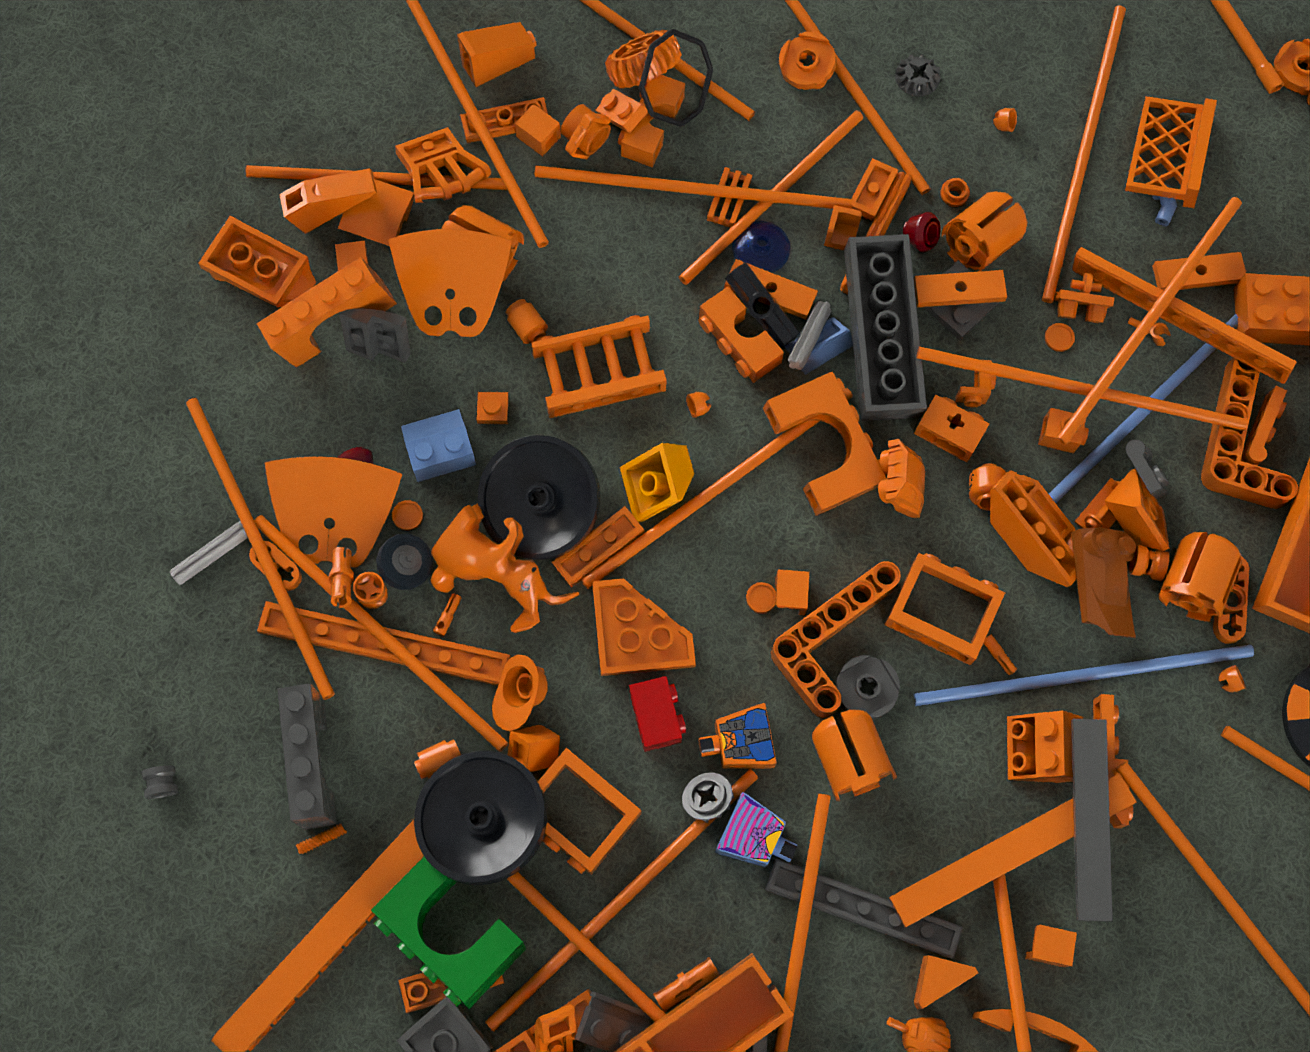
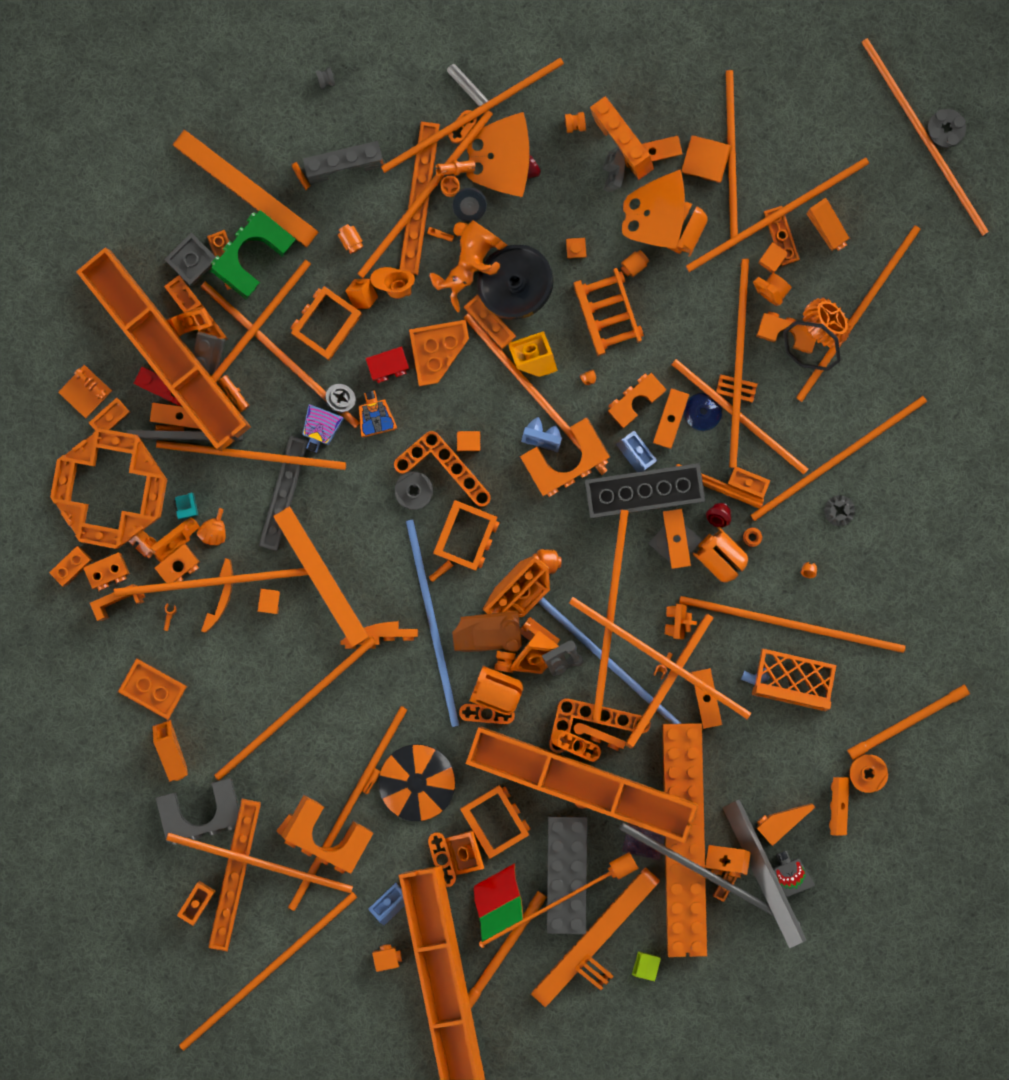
camera: 90 degrees right, 15 degrees up
(257, 264) = (658, 89): orange slope -> none
(293, 392) = (575, 122): none -> orange wheel
(324, 198) = (706, 126): orange slope -> none
(407, 515) = (501, 202): orange piece -> none
(433, 152) = (748, 188): orange plate -> none
(438, 445) = (548, 216): medium blue slope -> none
(480, 818) = (315, 266): black dish -> none
(621, 110) = (788, 311): orange plate -> none
(750, 290) = (663, 404): black piece -> none
(761, 597) = (466, 423): orange piece -> none
(788, 490) = (535, 436): none -> medium blue tile
(799, 48) = (834, 425): orange plate -> none
(809, 335) = (639, 444): light grey axle -> none
(842, 225) = (716, 463): orange panel -> none
(866, 746) = (370, 480): orange cylinder -> none
(905, 479) = (544, 507): orange slope -> none
(939, 978) = (247, 538): orange slope -> none
(958, 441) = (575, 544): orange brick -> none
(981, 391) = (609, 556): orange bracket -> none
(1040, 747) = (384, 598): orange slope -> none
(1053, 424) = (591, 602): orange brick -> none
(1059, 337) = (655, 607): orange piece -> none
(1091, 820) = (340, 619): dark grey tile -> none
(1234, 679) = (435, 713): orange hinge -> none
(1284, 459) = (583, 745): none -> orange beam

